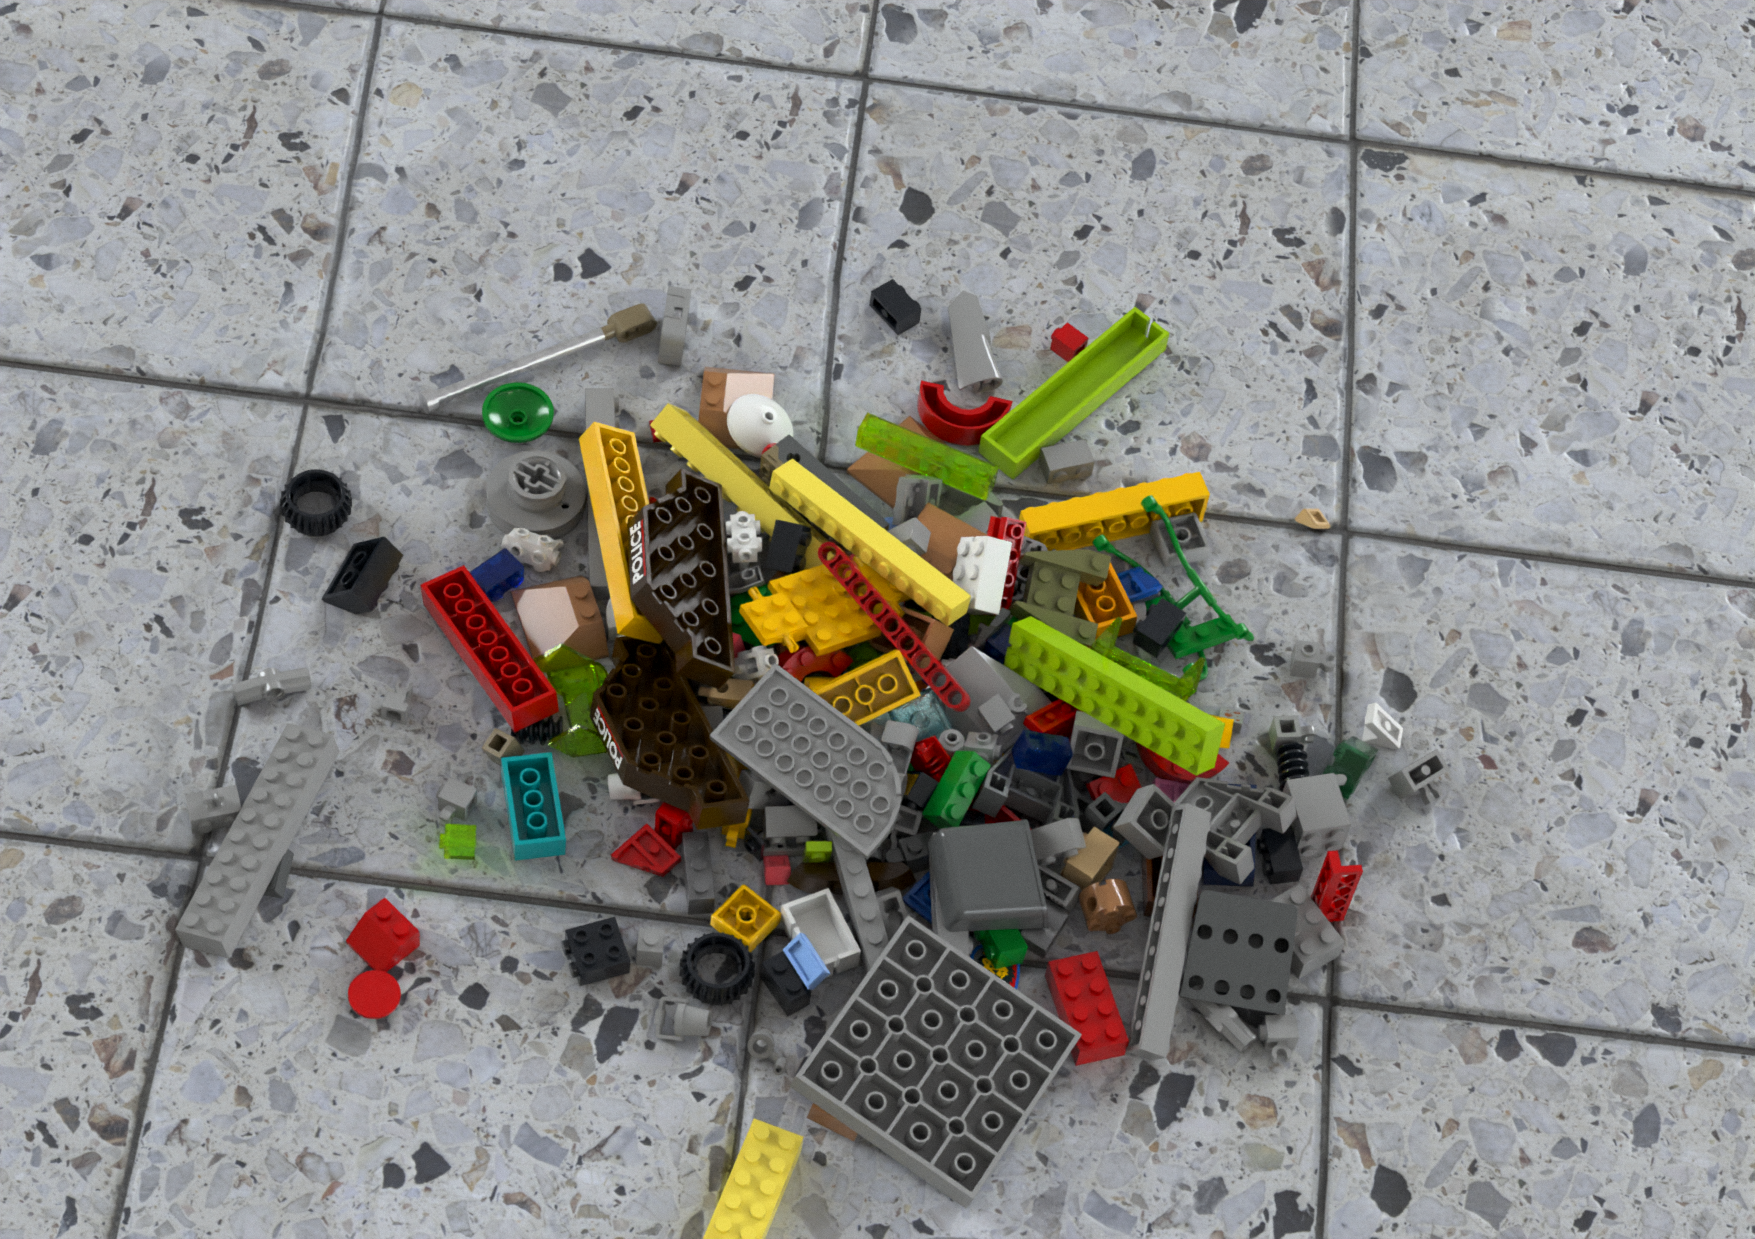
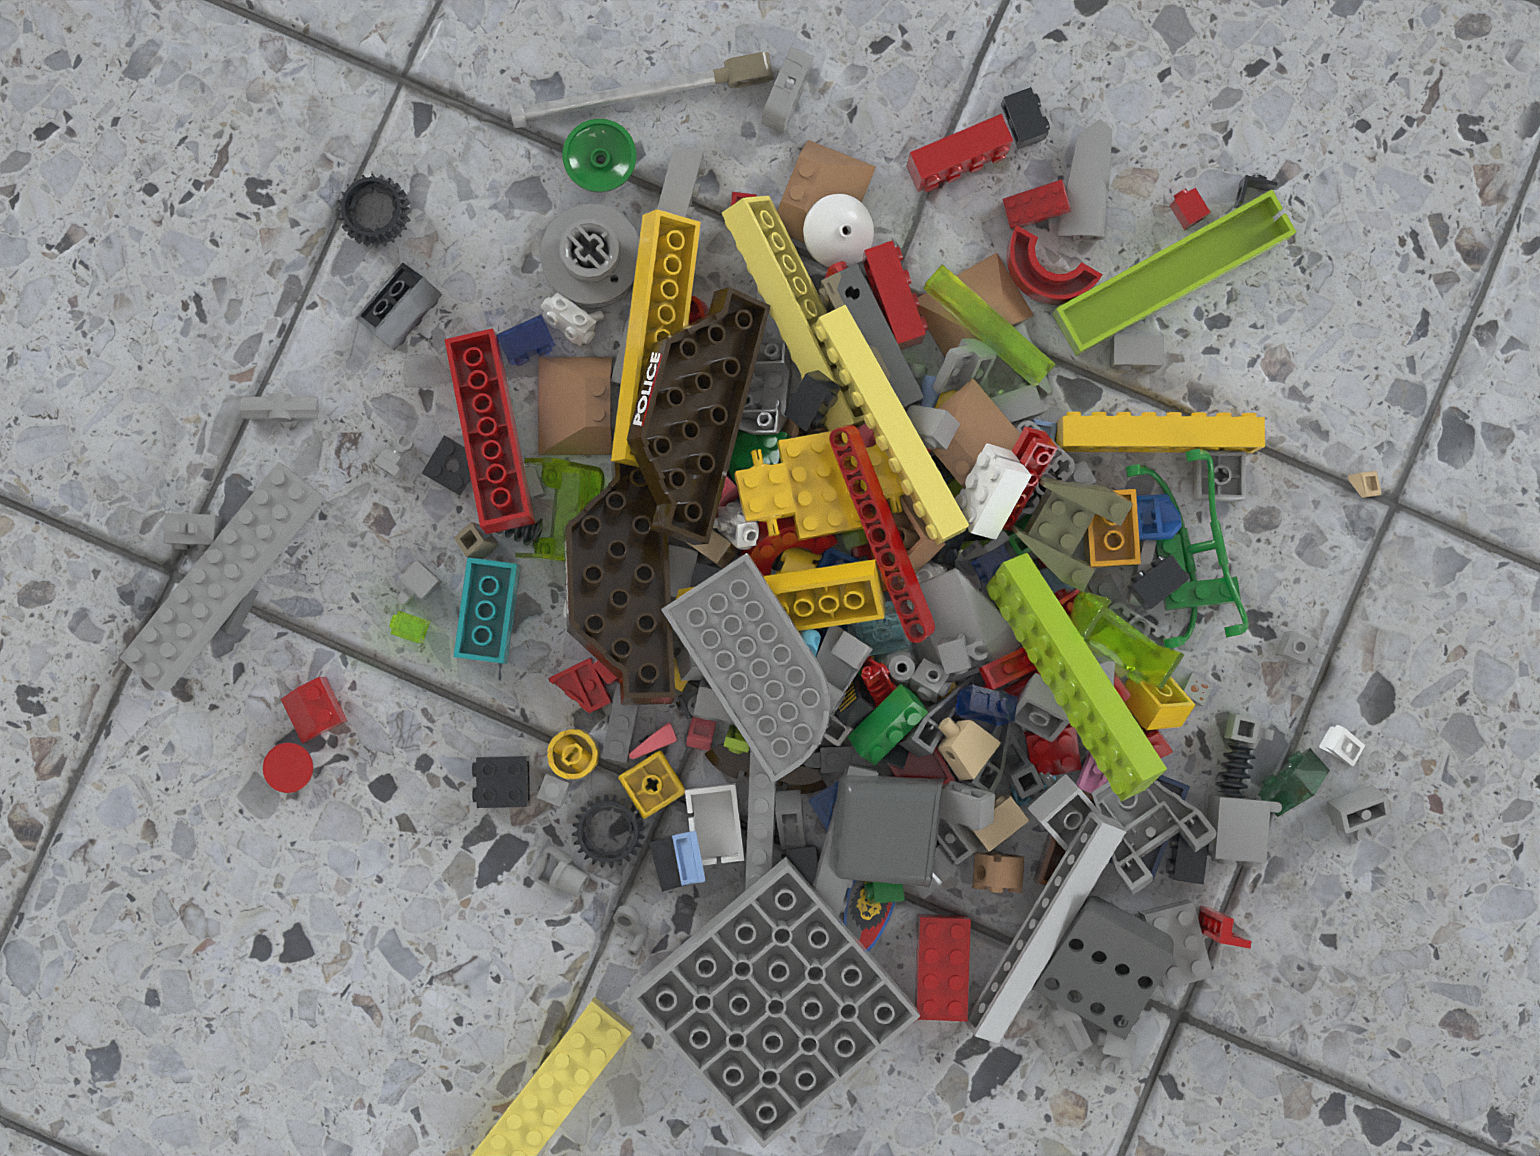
camera: 25 degrees right, 30 degrees up
(453, 685) = (437, 466): none -> black piece
(659, 907) = (573, 754): none -> yellow brick
(743, 538) = (771, 383): white brick -> none
(743, 873) = (663, 737): none -> coral slope
(829, 449) = (894, 295): none -> red brick
(847, 341) = (959, 153): none -> red brick
(932, 366) = (1037, 204): none -> red piece
(1036, 788) = (966, 747): none -> tan torso
(1116, 311) = (1255, 181): none -> black bracket

